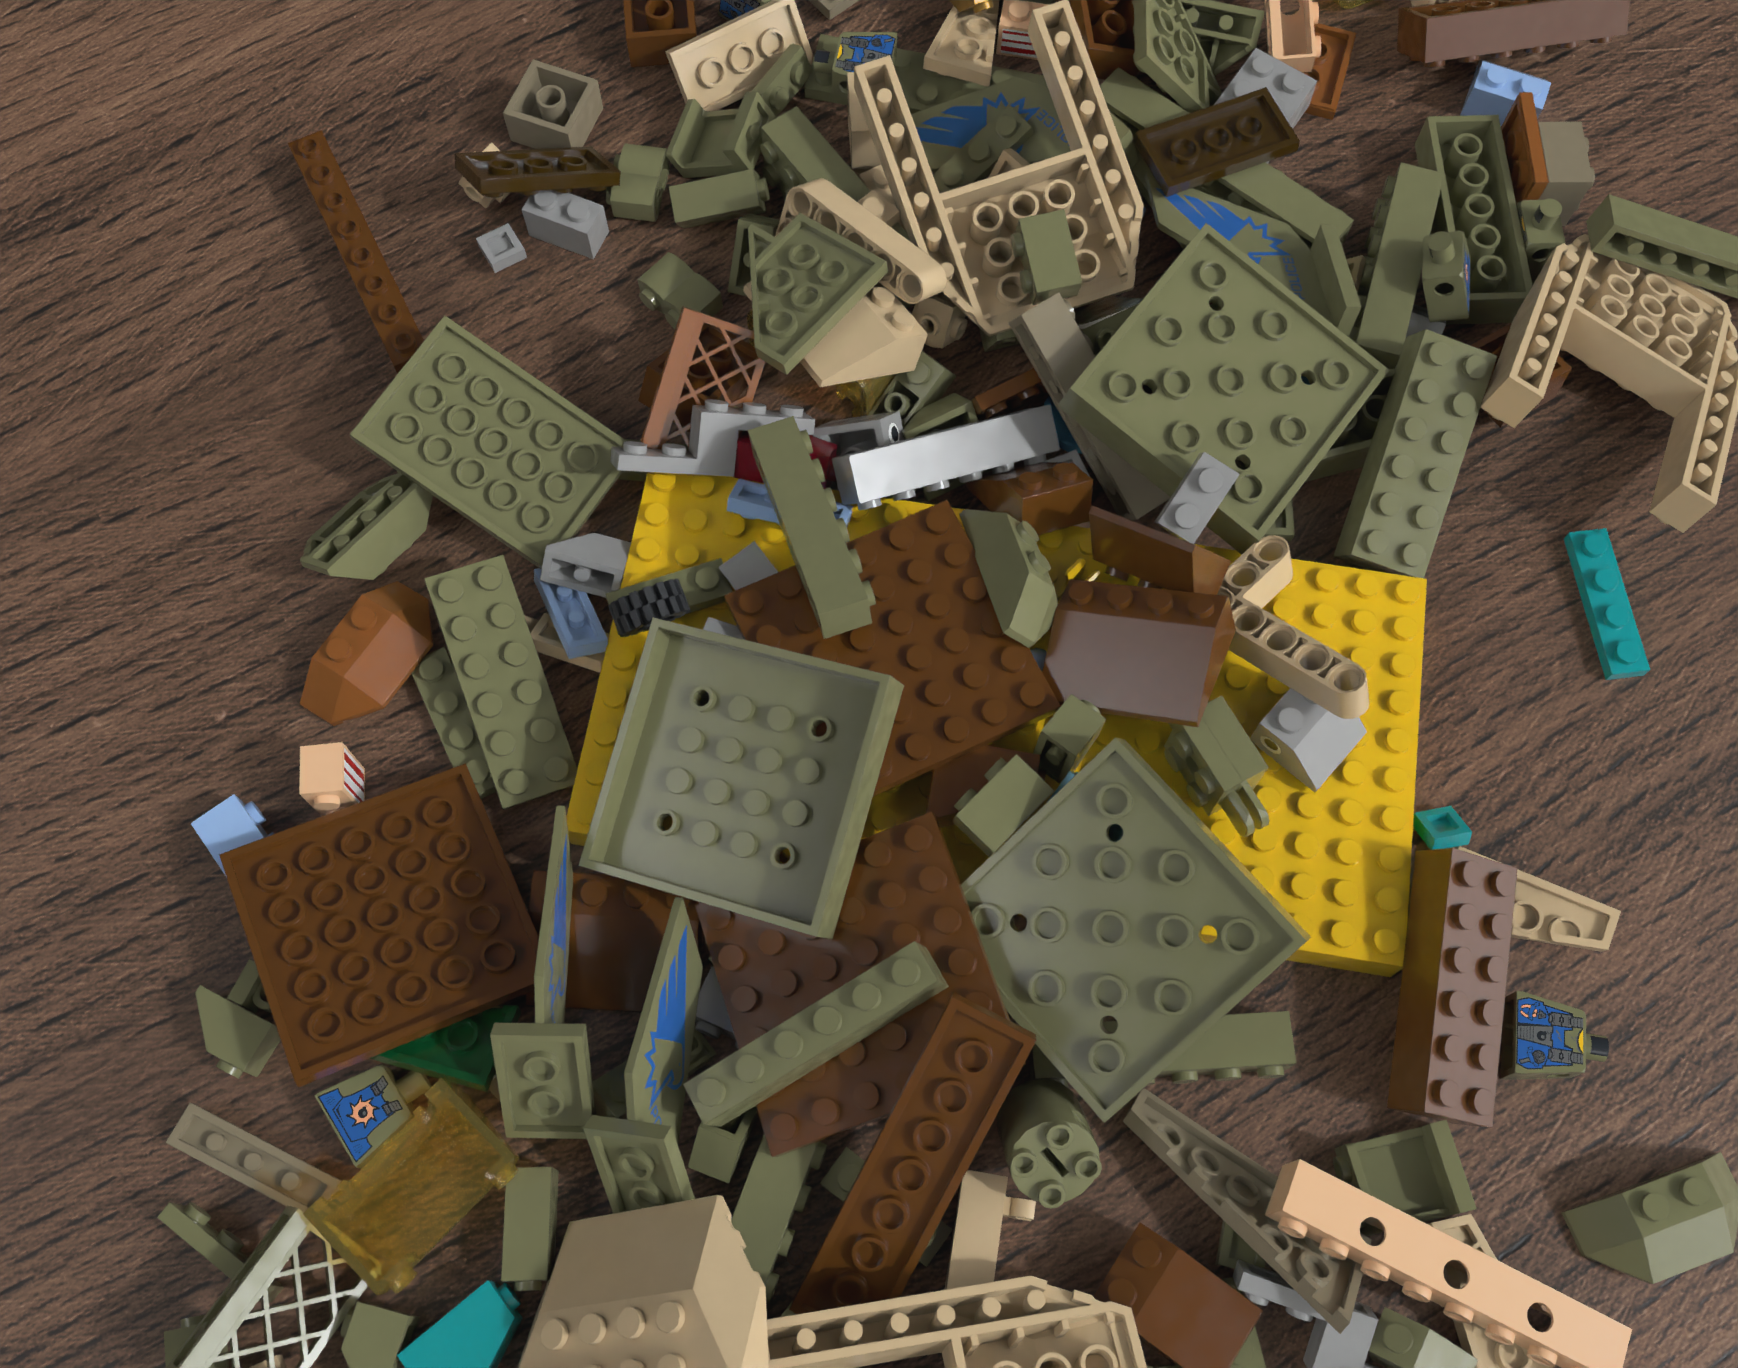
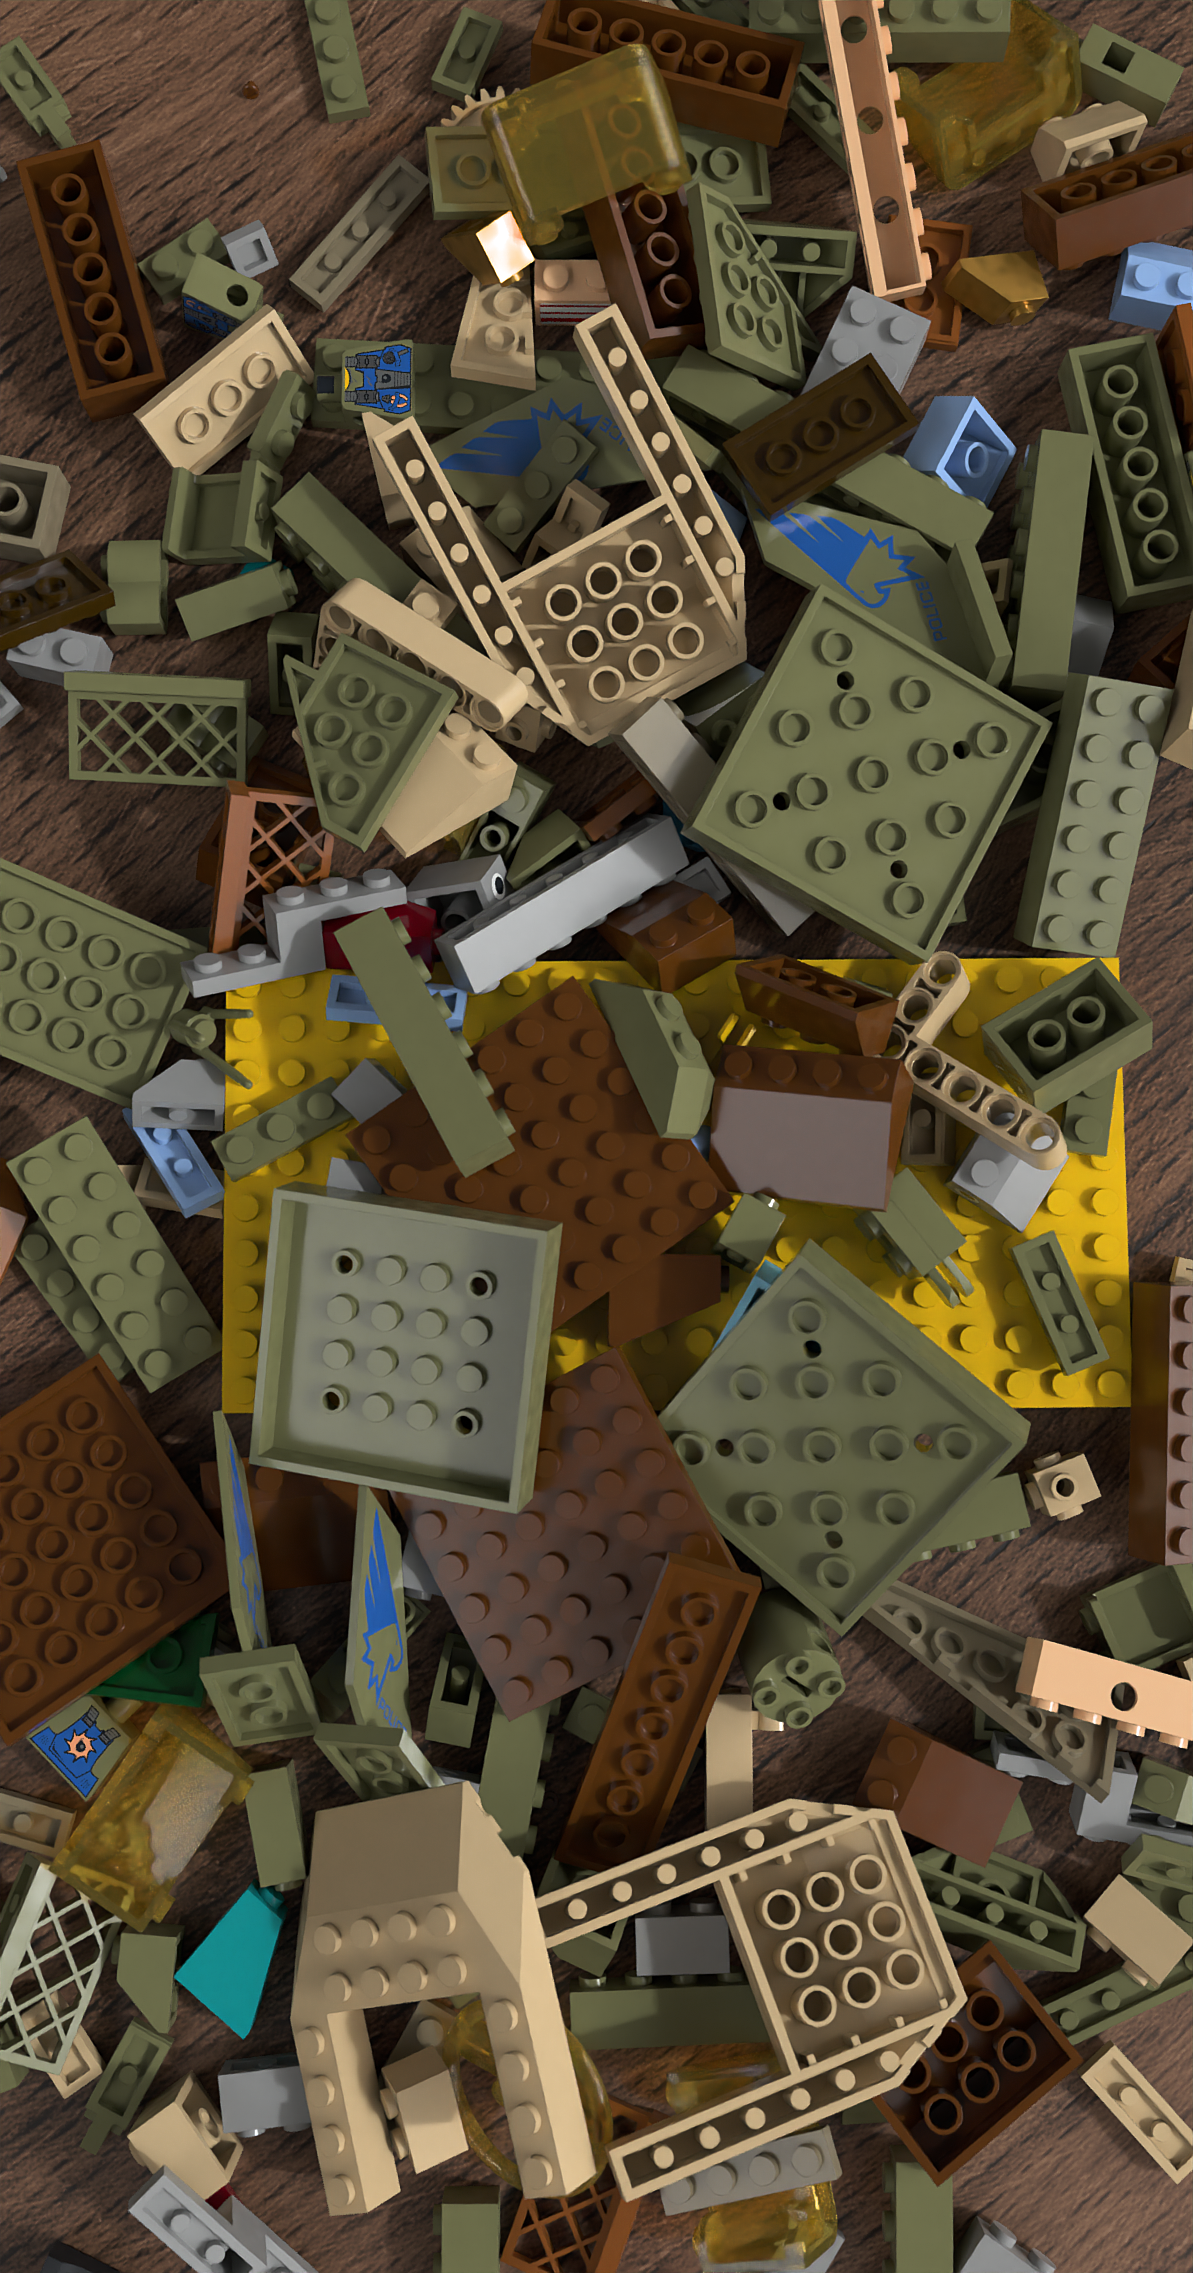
camera: 10 degrees left, 15 degrees up
(615, 510) = (199, 1031): none -> olive plant
(635, 242) = (156, 689): none -> olive fence
(635, 611) = (265, 1164): black tyre -> none
(815, 1035) = (534, 1605): olive brick -> none
(1001, 804) = (687, 1326): olive brick -> none
(1046, 256) = (640, 647): olive brick -> none
(1196, 498) = (852, 935): light grey brick -> none
(1243, 688) = (928, 1134): none -> tan slope
(1328, 1032) = (1075, 1489): none -> tan brick
(1334, 175) = (961, 447): none -> light blue slope
(1345, 855) = (1058, 1303): none -> olive plate
(1373, 72) = (998, 286): none -> pearl gold slope
(1381, 618) = (1067, 1036): none -> olive brick
(1389, 693) = (1088, 1118): none -> olive plate
(1441, 828) = (1159, 1238): teal plate -> none
(1446, 261) = (1105, 571): olive torso -> none

